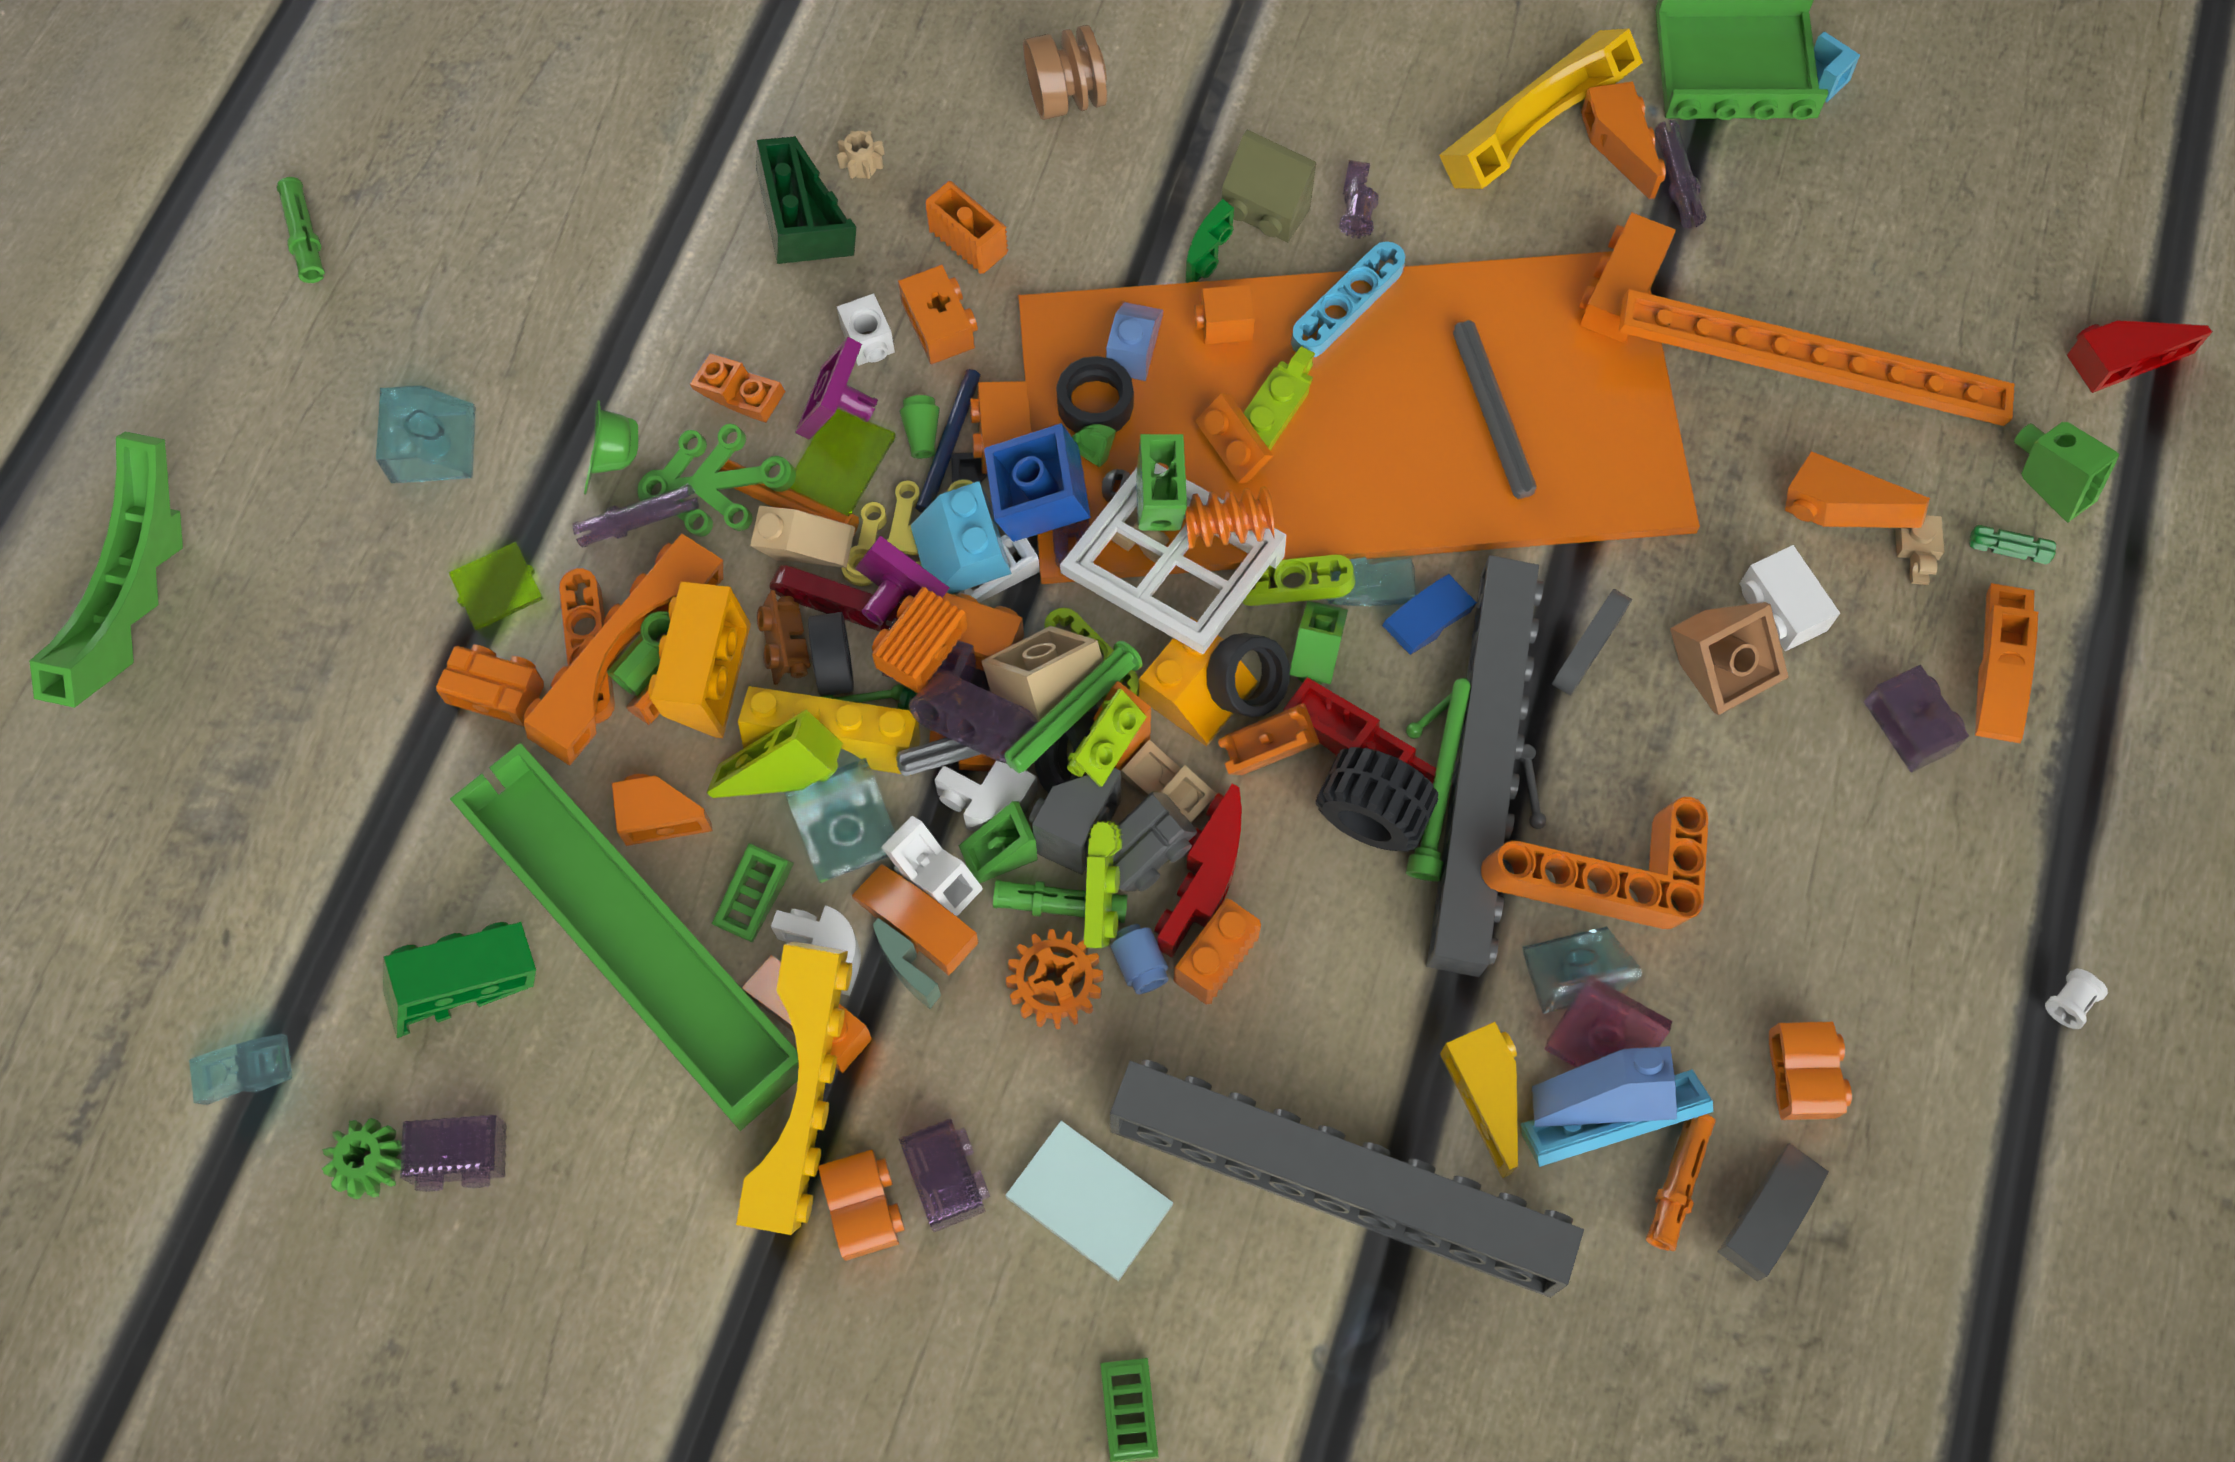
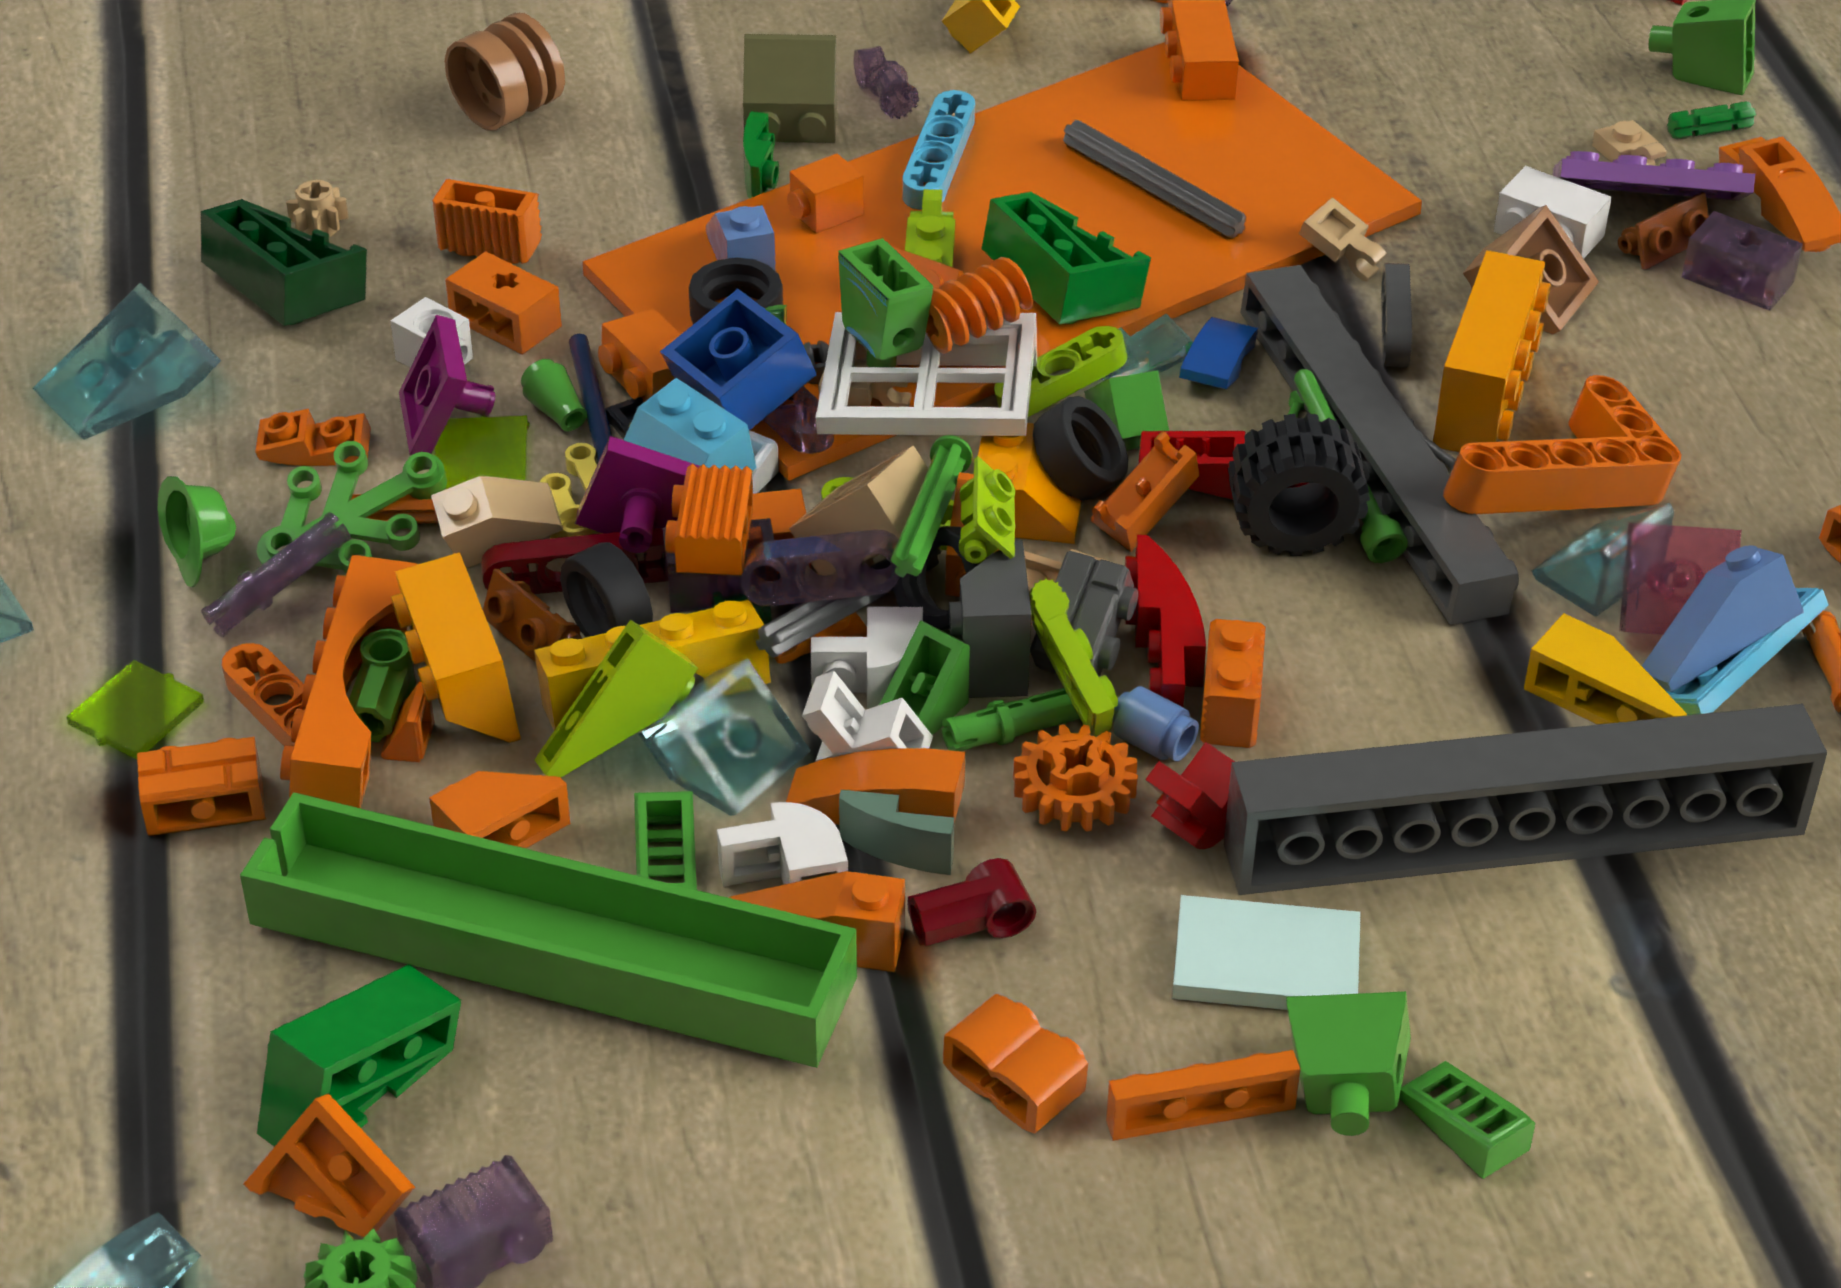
camera: 30 degrees left, 25 degrees down
(395, 1064) = (332, 1170): none -> orange wing
(648, 260) = (126, 366): none -> clear light blue slope
(810, 990) = (832, 843): yellow arch -> none
(927, 1056) = (988, 900): none -> dark red piece
(943, 1174) = (1090, 994): clear purple brick -> none
(962, 1298) = (1202, 1094): none -> orange plate
(1074, 1327) = (1350, 1054): none -> bright green torso
(1110, 1048) = (1197, 799): none -> red brick
(1351, 477) = (1066, 267): none -> green wedge
(1598, 538) = (1342, 233): none -> tan plate
(1625, 732) = (1492, 352): none -> light orange brick
(1816, 357) = (1422, 37): orange plate -> none
(1847, 497) = (1547, 125): orange slope -> none
(1889, 655) = (1665, 232): none -> dark orange hinge
(1900, 601) = (1670, 178): none -> medium lavender plate

